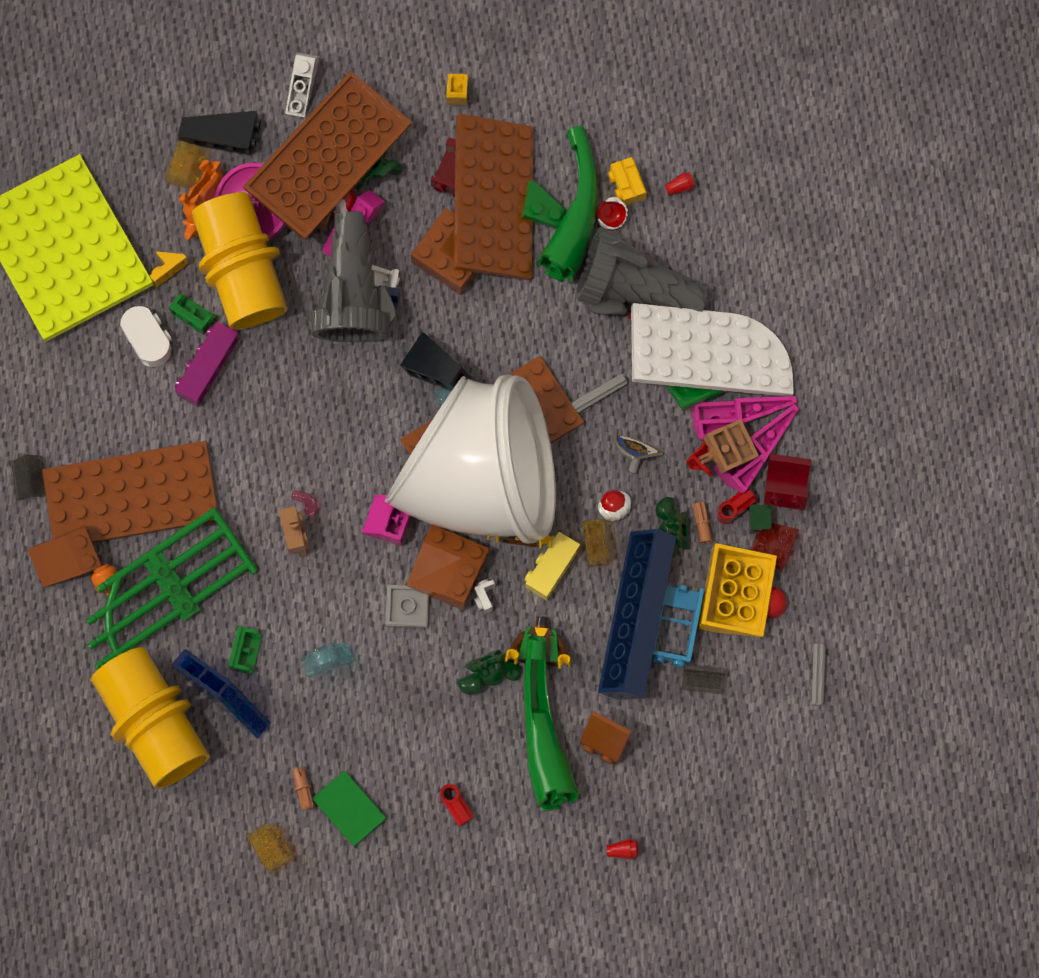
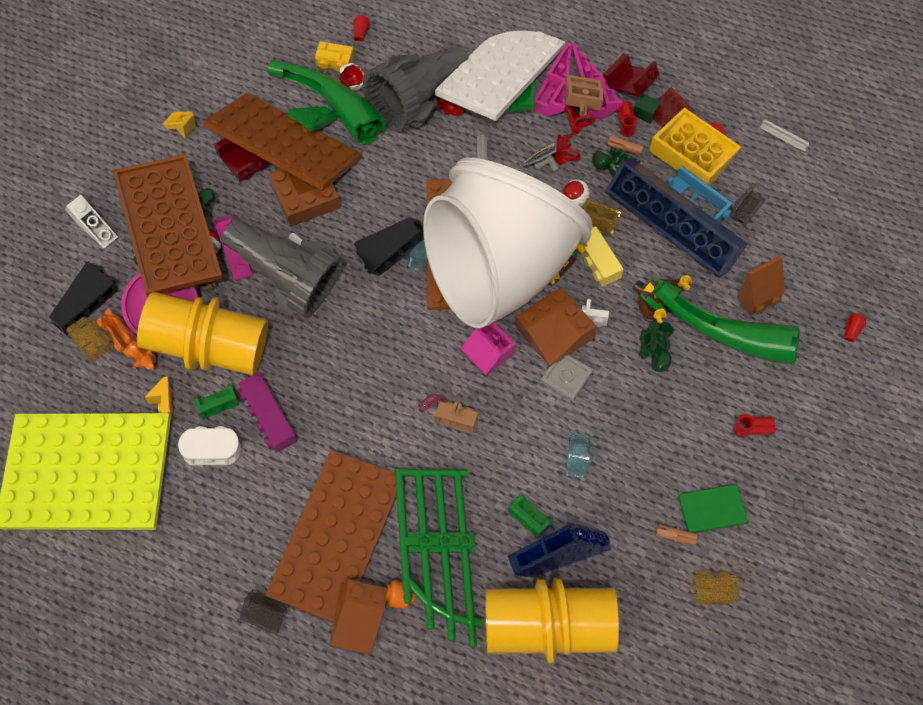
camera: 60 degrees left, 10 degrees down
(658, 464) = (563, 149): none -> red piece

